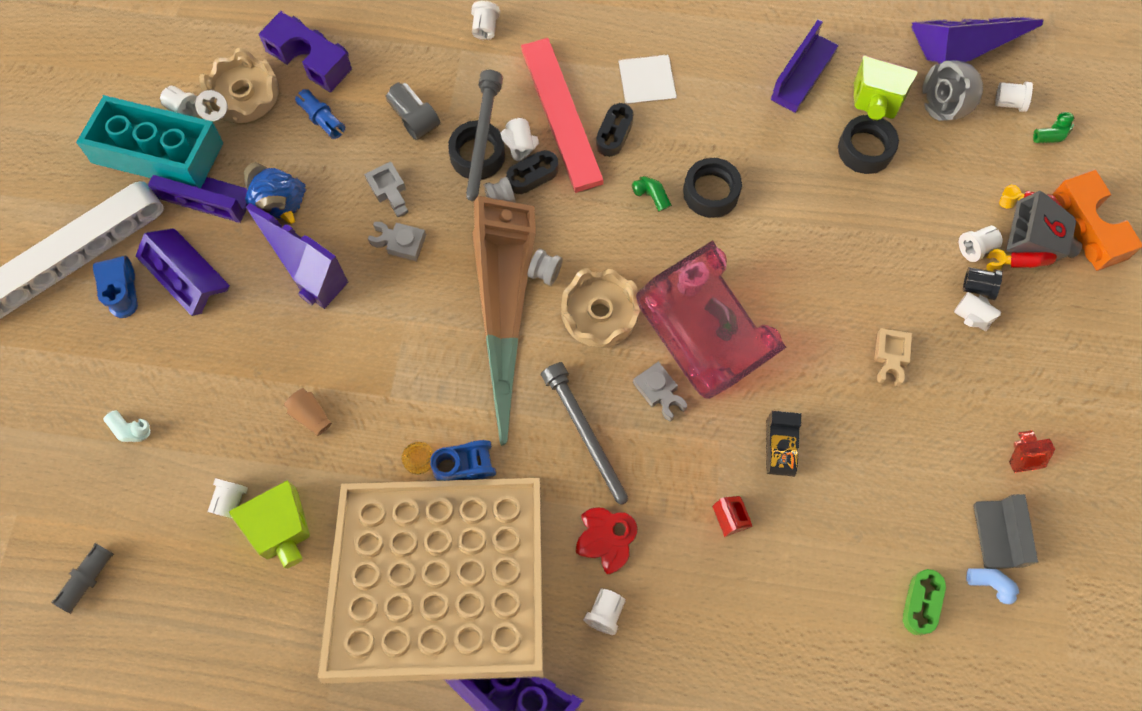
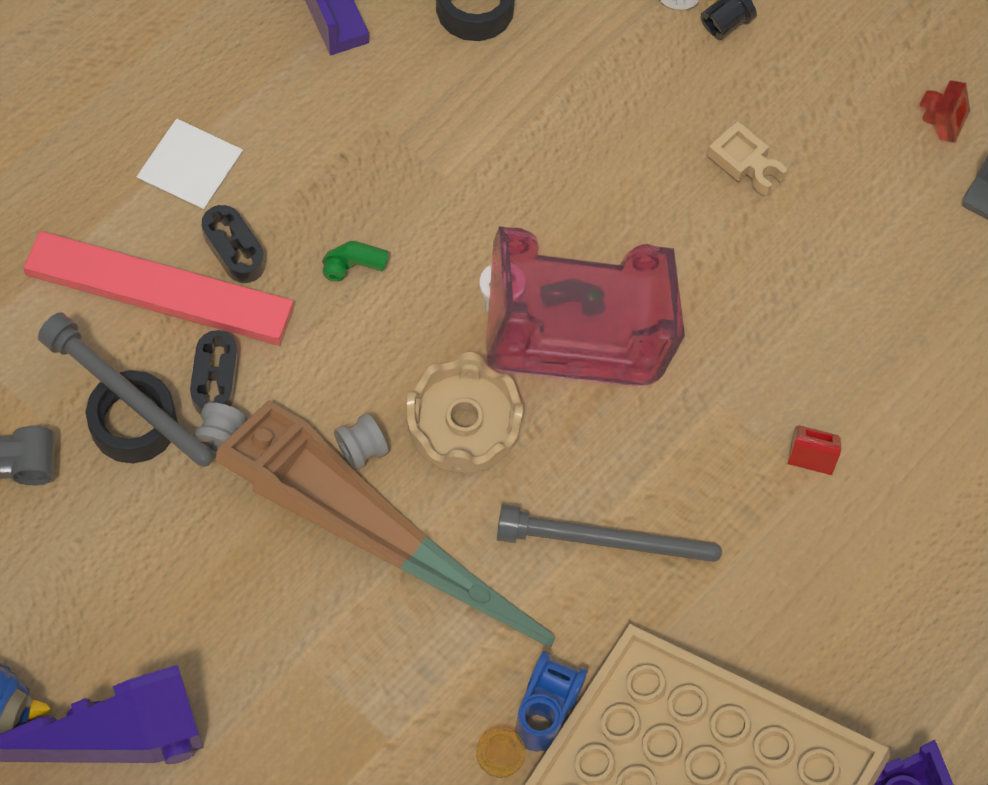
camera: 60 degrees left, 5 degrees down
(387, 185) = (92, 553): light grey plate -> none
(401, 241) = (184, 588): light grey plate -> none
(519, 138) = (159, 356): white piece -> none
(602, 540) = (750, 605): red plate -> none
(605, 612) = (840, 656): white bush -> none
(658, 387) = (605, 423): light grey plate -> none
(715, 167) = (401, 162): black tyre -> none
(782, 443) = (770, 338): black leg -> none
(977, 311) = (755, 43): white piece -> none

